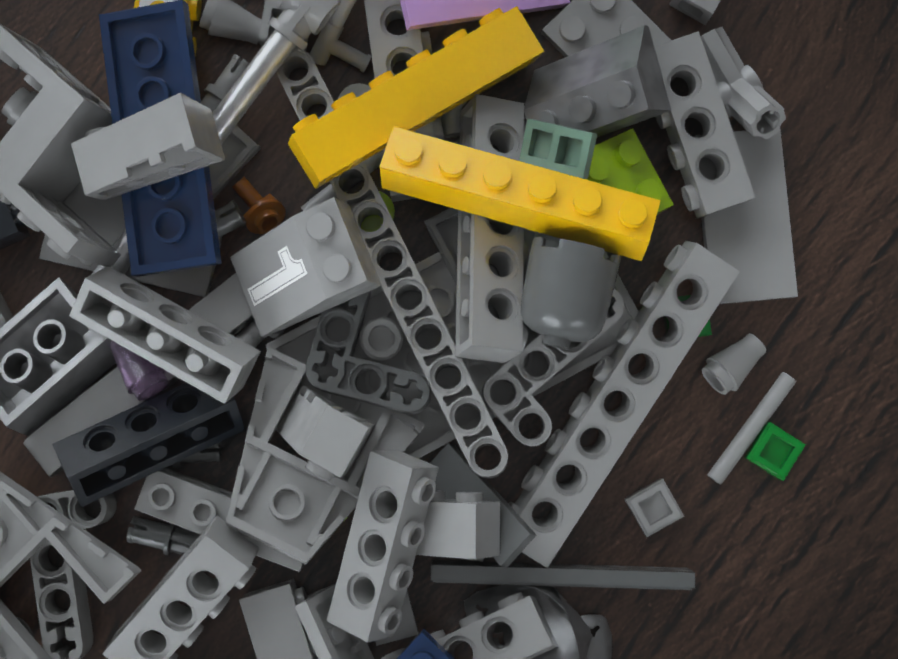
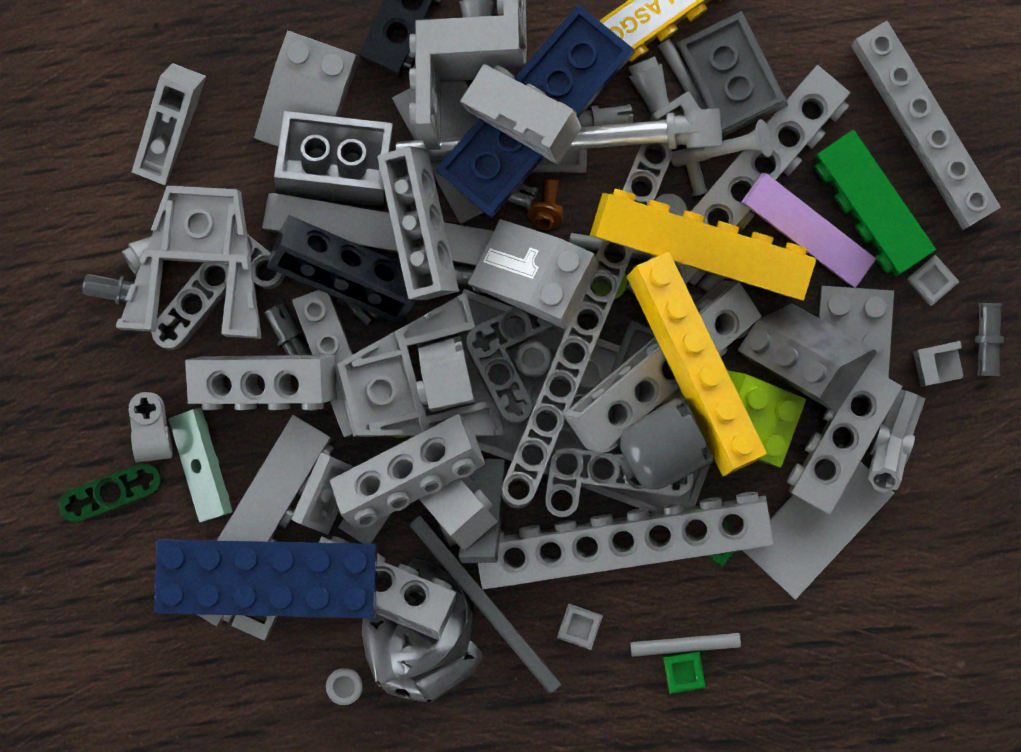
camera: 55 degrees right, 0 degrees up
(138, 374) = (378, 228): clear purple cone -> none
(558, 148) = (747, 363): sand green slope -> none
(731, 366) = (713, 596): light grey cone -> none

